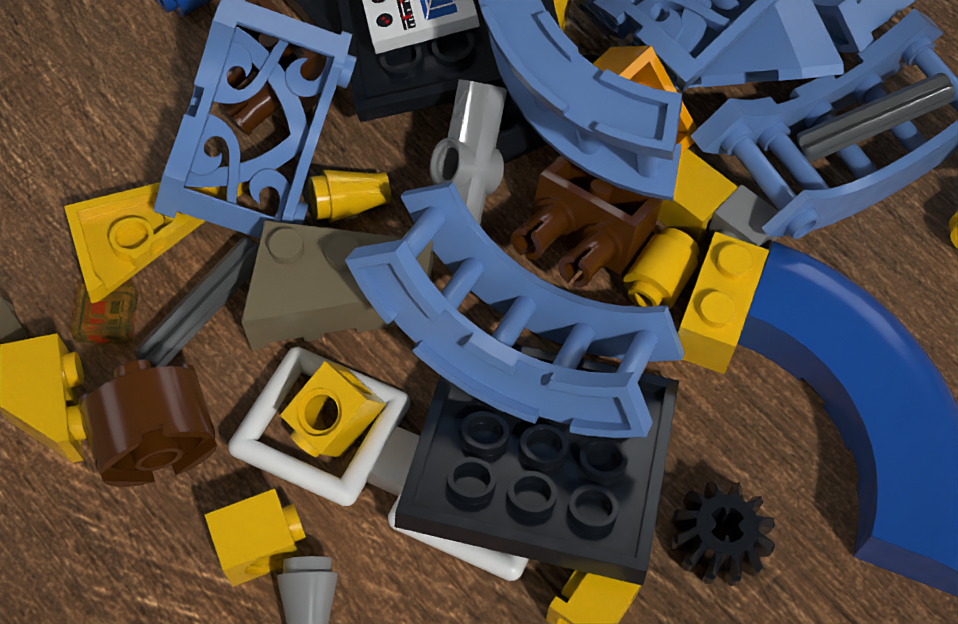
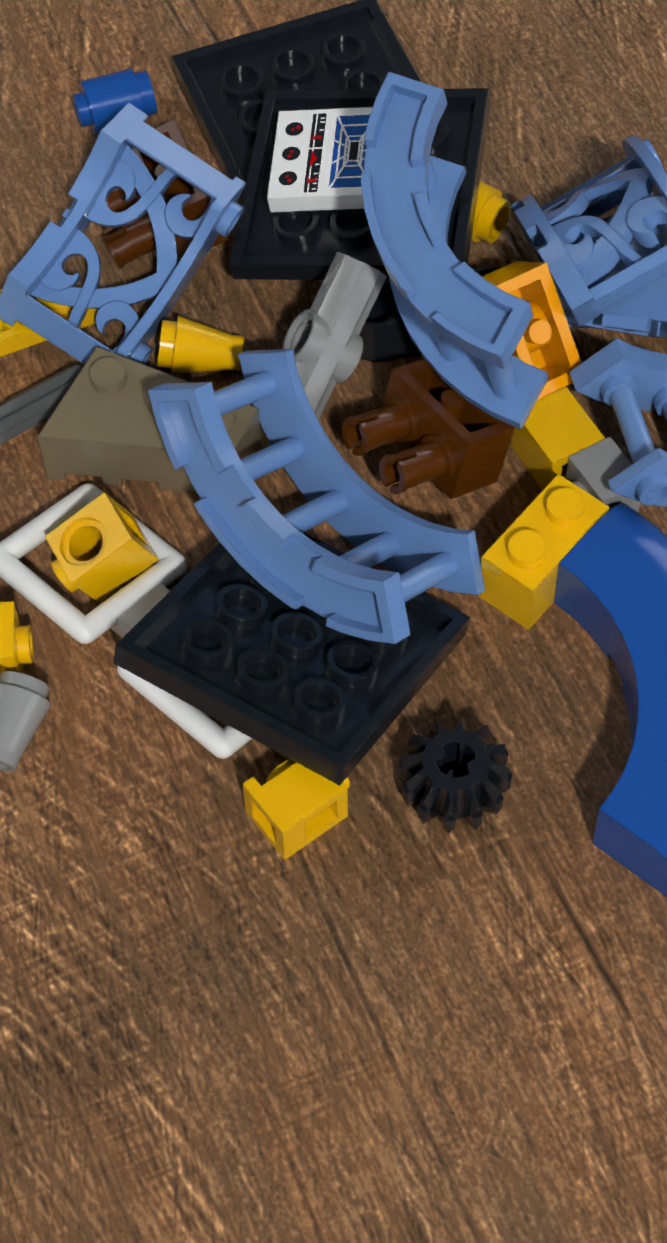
camera: 20 degrees right, 5 degrees down
(662, 269) = (495, 502): yellow brick -> none

